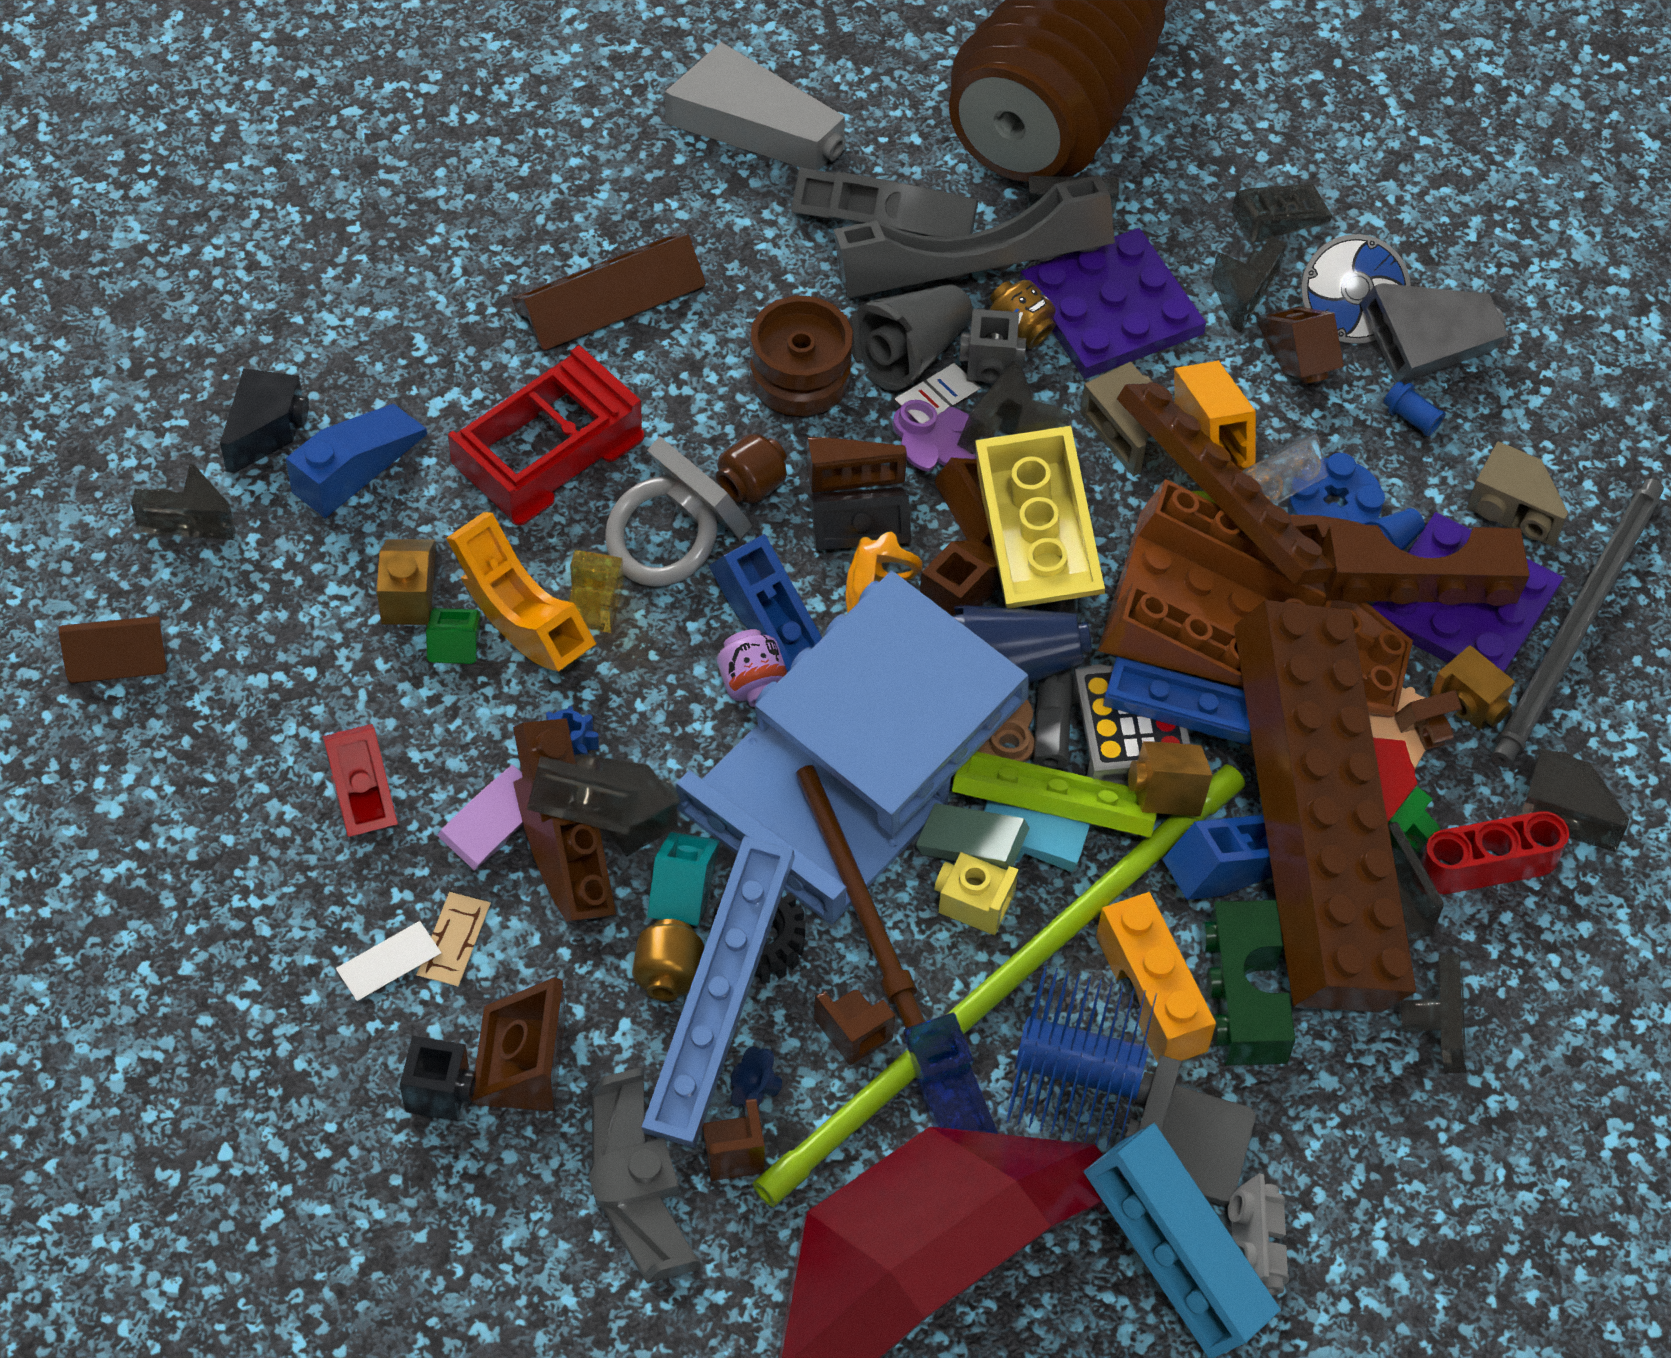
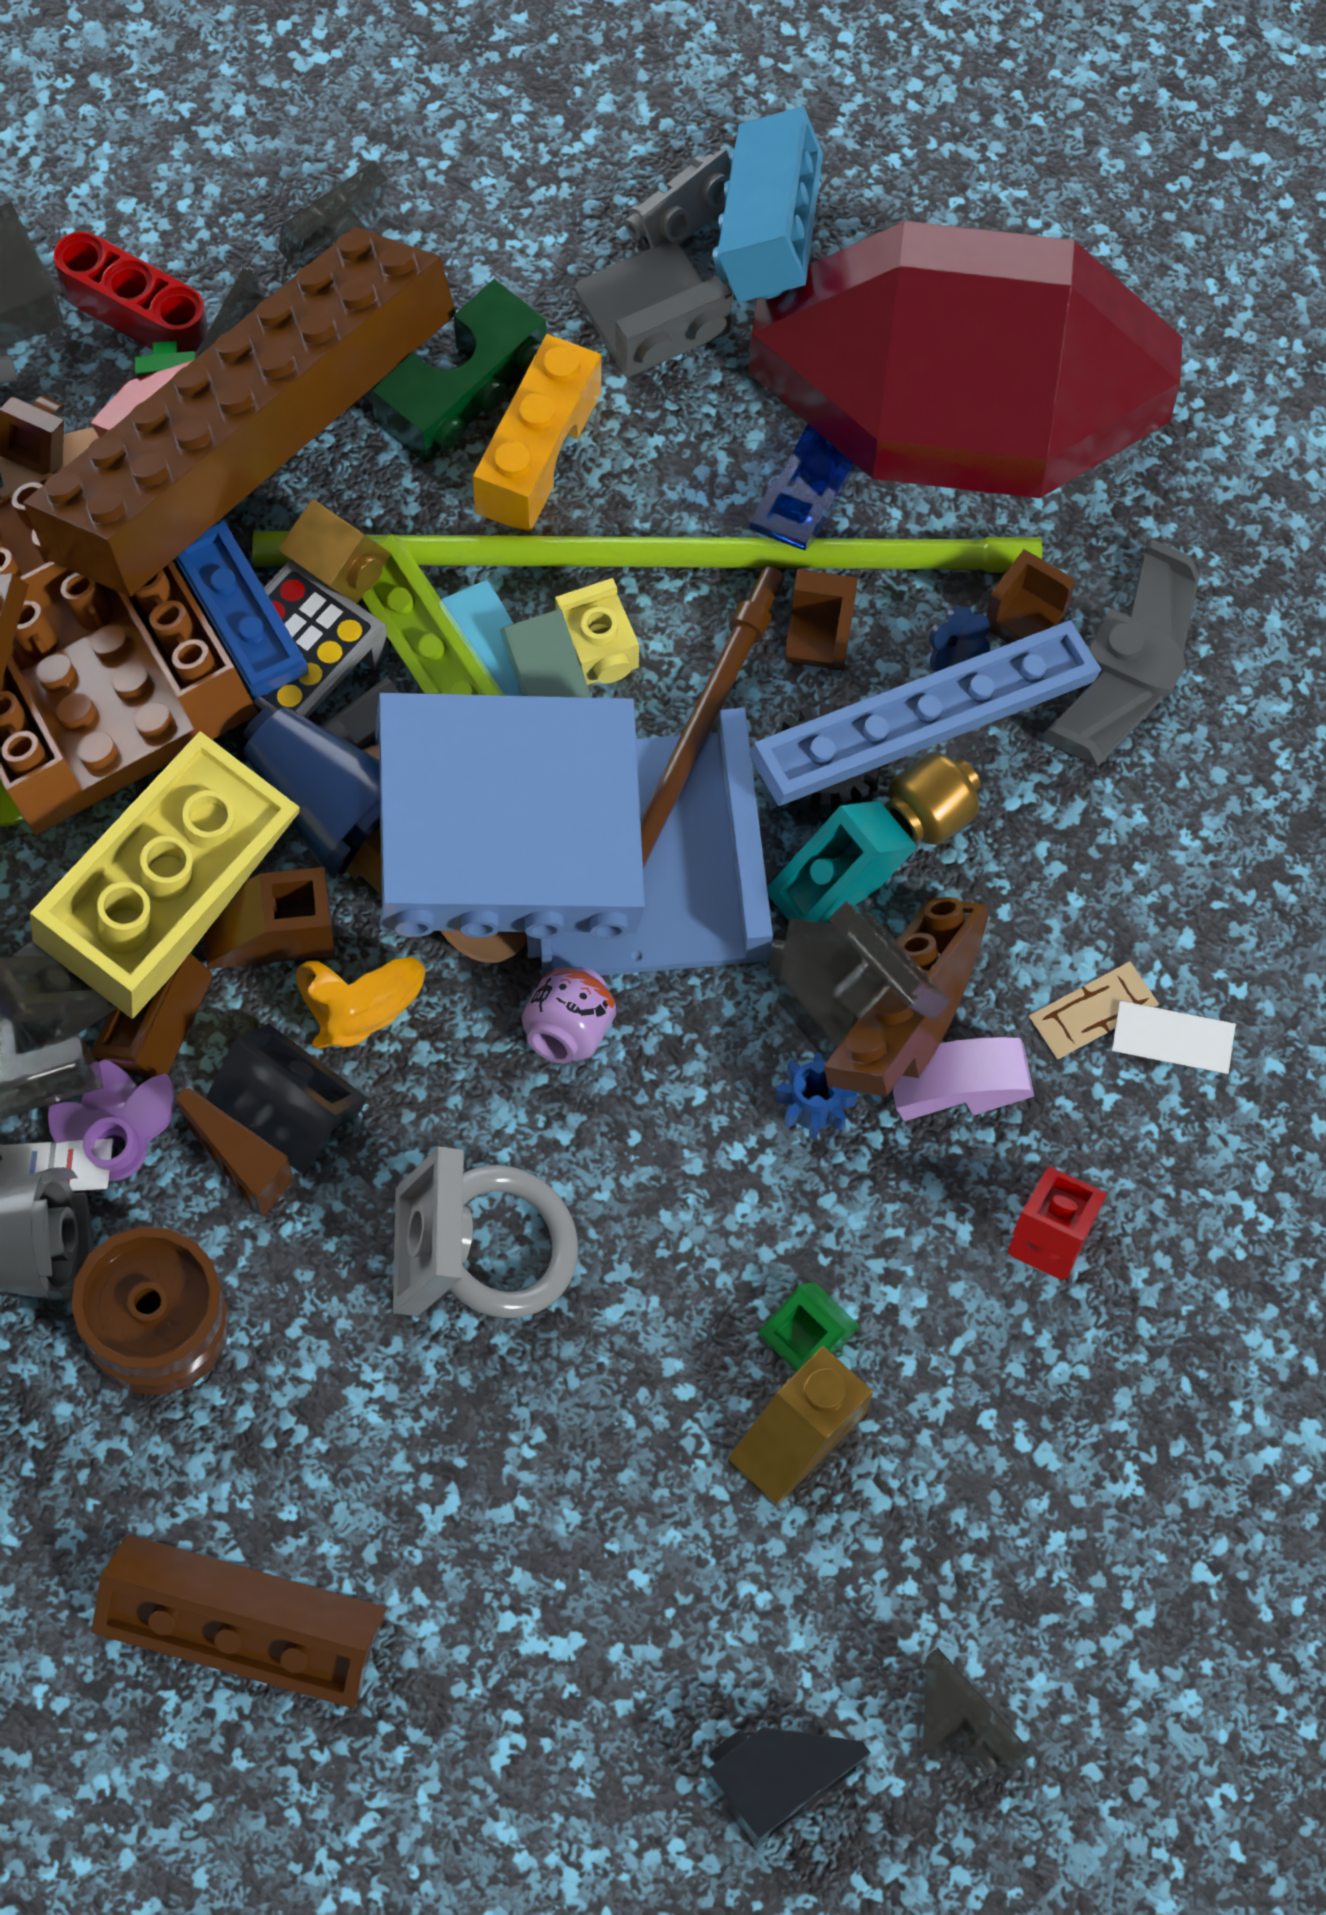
camera: 135 degrees left, 10 degrees up
(113, 649) = (1176, 1609): reddish brown slope -> none
(349, 456) = (719, 1635): blue slope -> none
(436, 1078) = (1244, 855): black brick -> none
(521, 1049) = (1135, 833): reddish brown slope -> none
(526, 615) = (726, 1266): light orange arch -> none
(596, 588) = (633, 1237): clear yellow panel -> none
(608, 437) = (411, 1472): red piece -> none
(751, 468) = (335, 1238): reddish brown head -> none
(766, 597) = (483, 1064): blue slope -> none
(1078, 1056) = (694, 386): blue piece -> none
(1220, 856) = (355, 475): blue slope -> none

